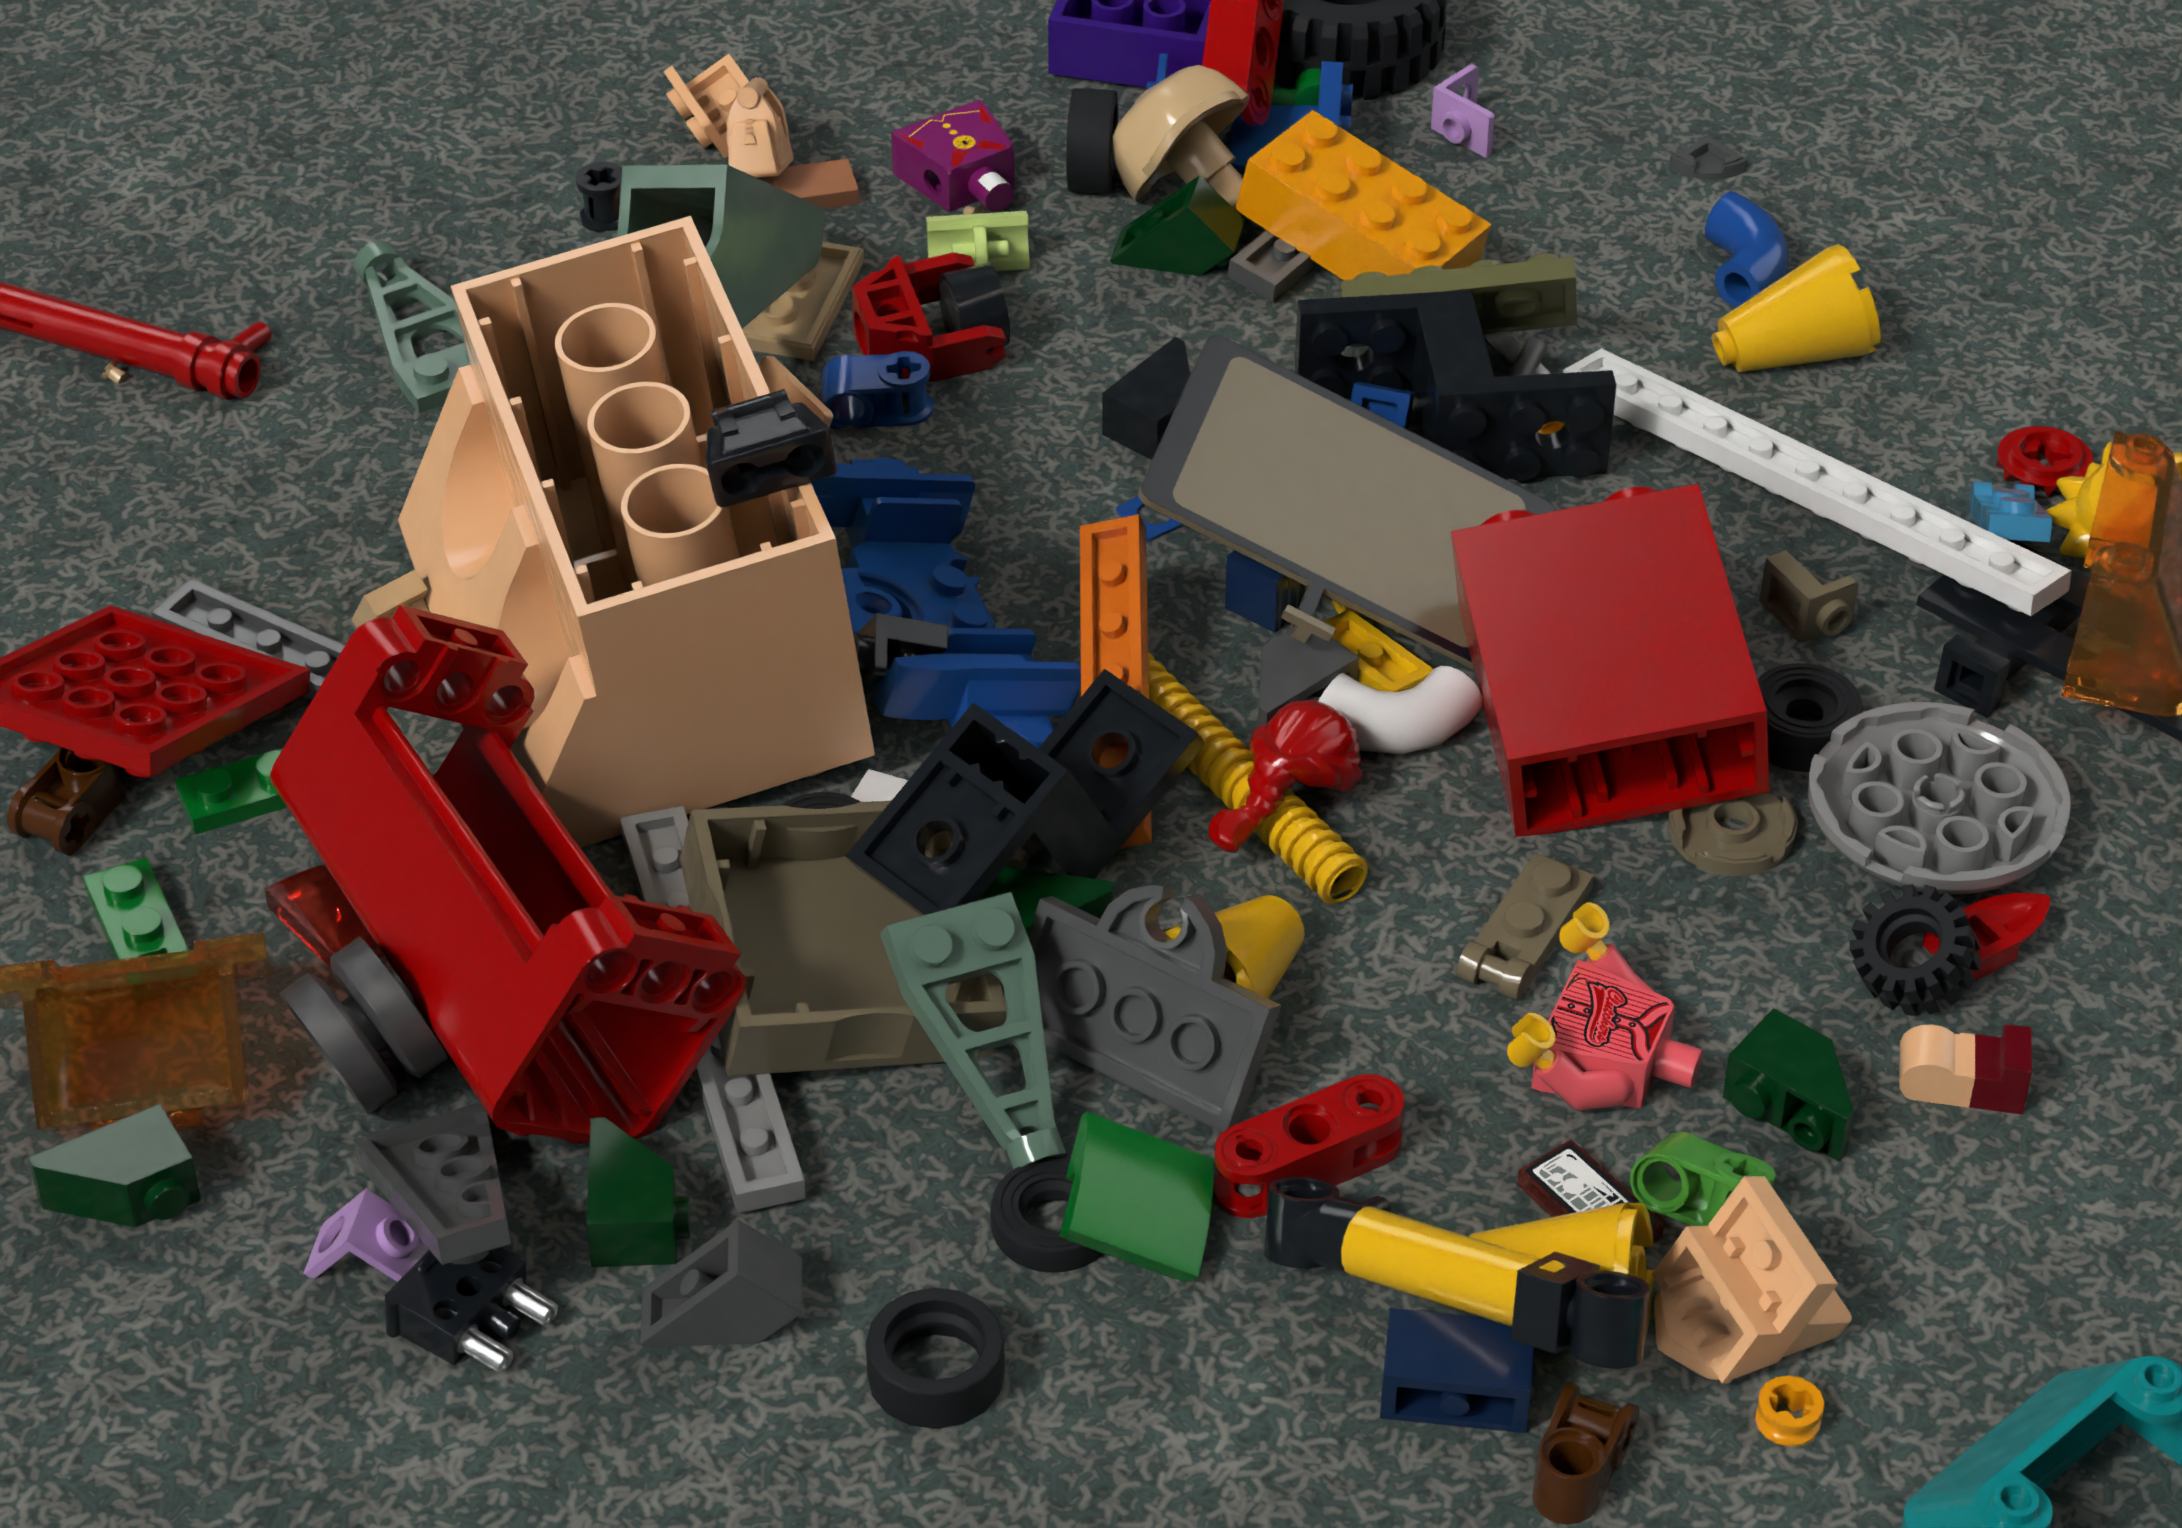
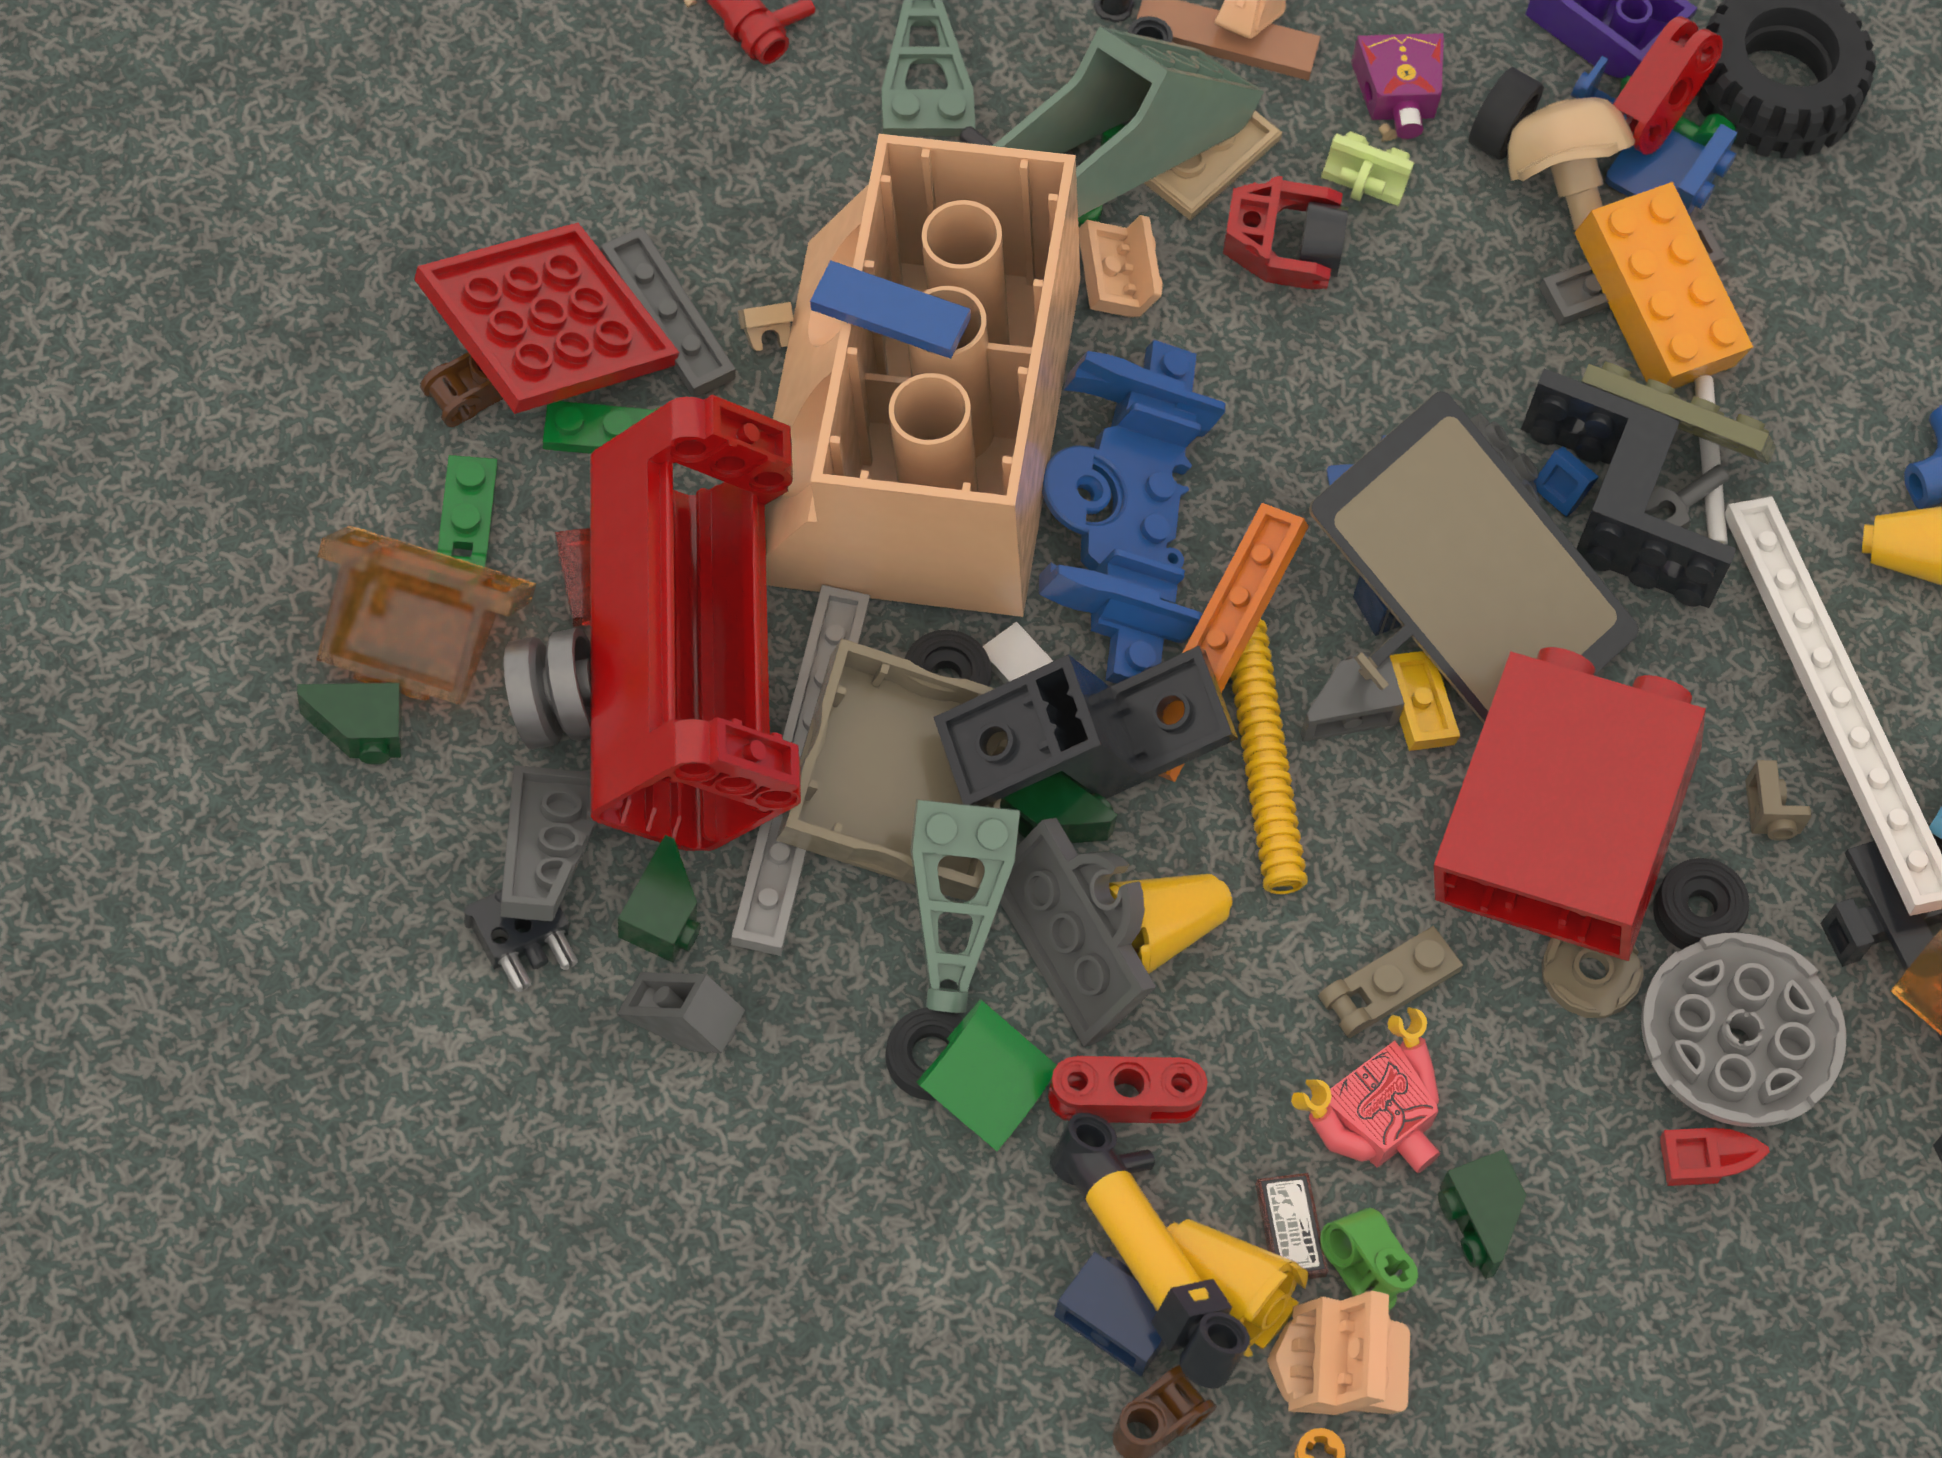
camera: 20 degrees right, 20 degrees up
(371, 1232) = (482, 849): lavender bracket -> none
(569, 422) = (890, 309): none -> blue tile
(765, 448) = (1002, 409): black piece -> none
(872, 390) = (1210, 277): blue piece -> none
(892, 637) = (1078, 548): black bracket -> none
(945, 1400) = (791, 1165): black tyre -> none
(1144, 399) = (1404, 384): black slope -> none
(1182, 233) = (1523, 233): dark green slope -> none
(1298, 744) = (1312, 762): red hair -> none
(1407, 718) = (1405, 764): white cylinder -> none
(1460, 116) = (1805, 214): lavender bracket -> none
(1904, 918) = (1655, 1173): black tyre -> none
(1967, 1067) = (1615, 1256): leg -> none

